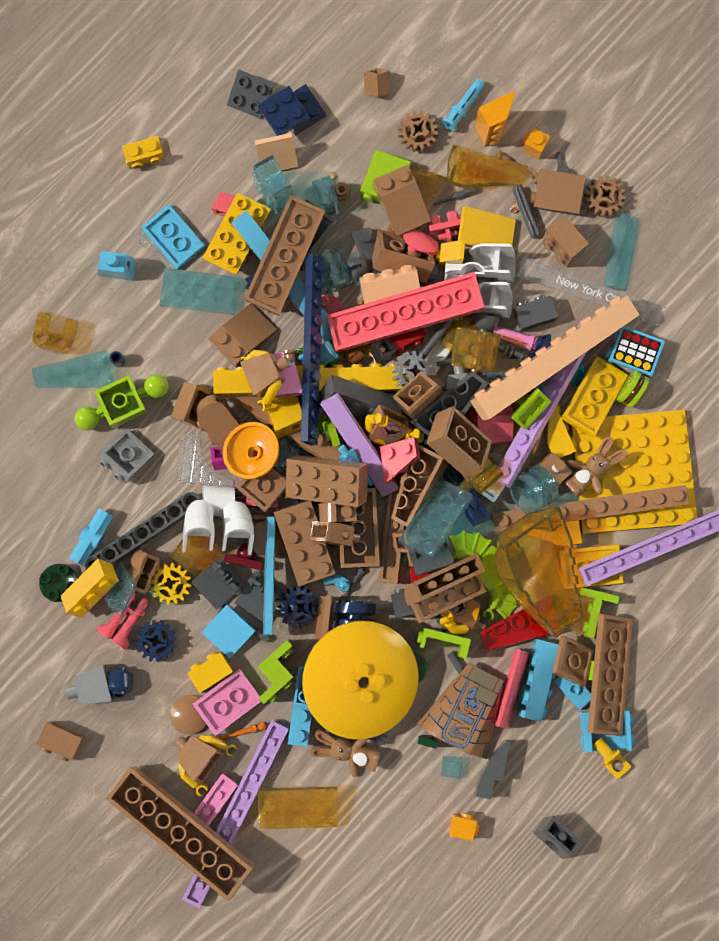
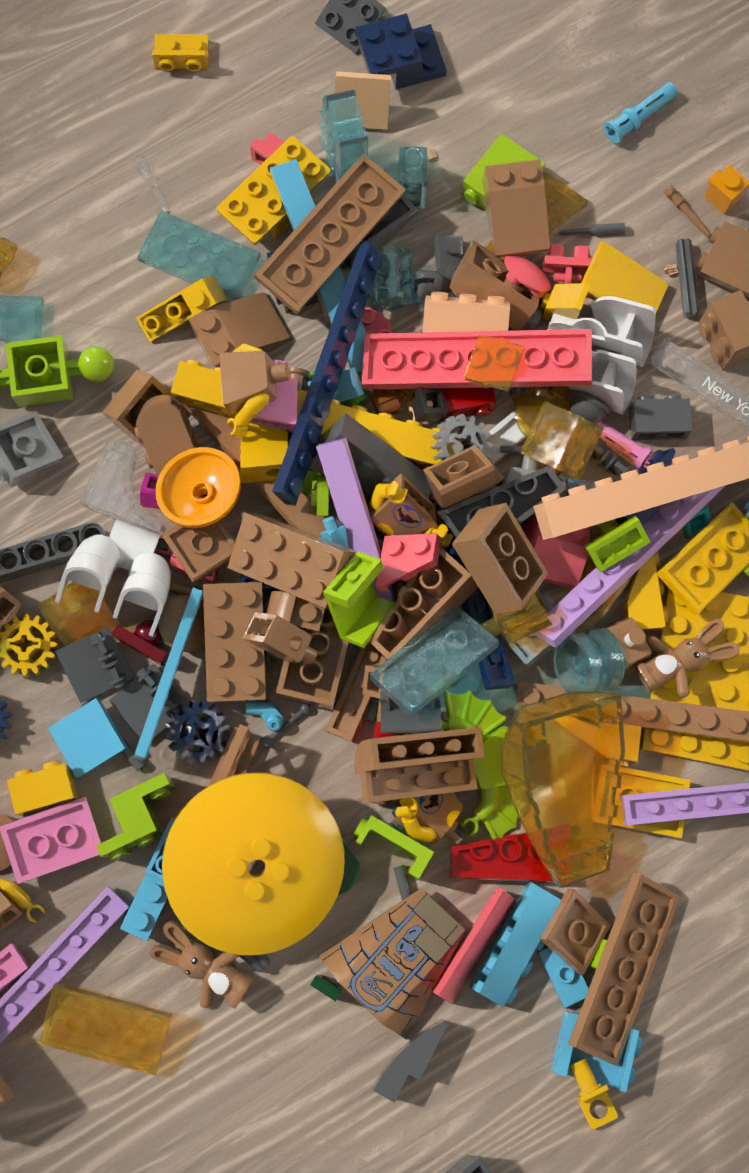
camera: 10 degrees right, 5 degrees down
(113, 355) = (54, 306): dark blue hinge -> none
(115, 265) = (89, 185): medium azure torso -> none
(173, 237) = (186, 174): medium azure tile -> none
(200, 331) = (181, 307): none -> yellow slope
(253, 728) = (77, 890): orange piece -> none
(286, 452) = (246, 504): clear light blue tile -> none
(346, 190) = (440, 184): medium nougat plate -> none
(353, 611) = (275, 760): dark blue wheel -> none
(374, 496) = (354, 600): none -> lime panel
(377, 82) = (529, 49): medium nougat panel -> none
(399, 604) = (345, 778): dark grey slope -> none
(417, 312) = (493, 362): none -> piece
(424, 135) = (566, 124): medium nougat gear -> none
(435, 338) = (513, 408): dark grey bar -> none
(451, 767) = (350, 1036): clear light blue tile -> none
(463, 826) = (342, 1132): light orange brick -> none
(477, 169) = (636, 201): clear yellow wedge -> none
(493, 119) = (678, 135): light orange slope -> none
(593, 608) = (628, 863): lime bracket -> none

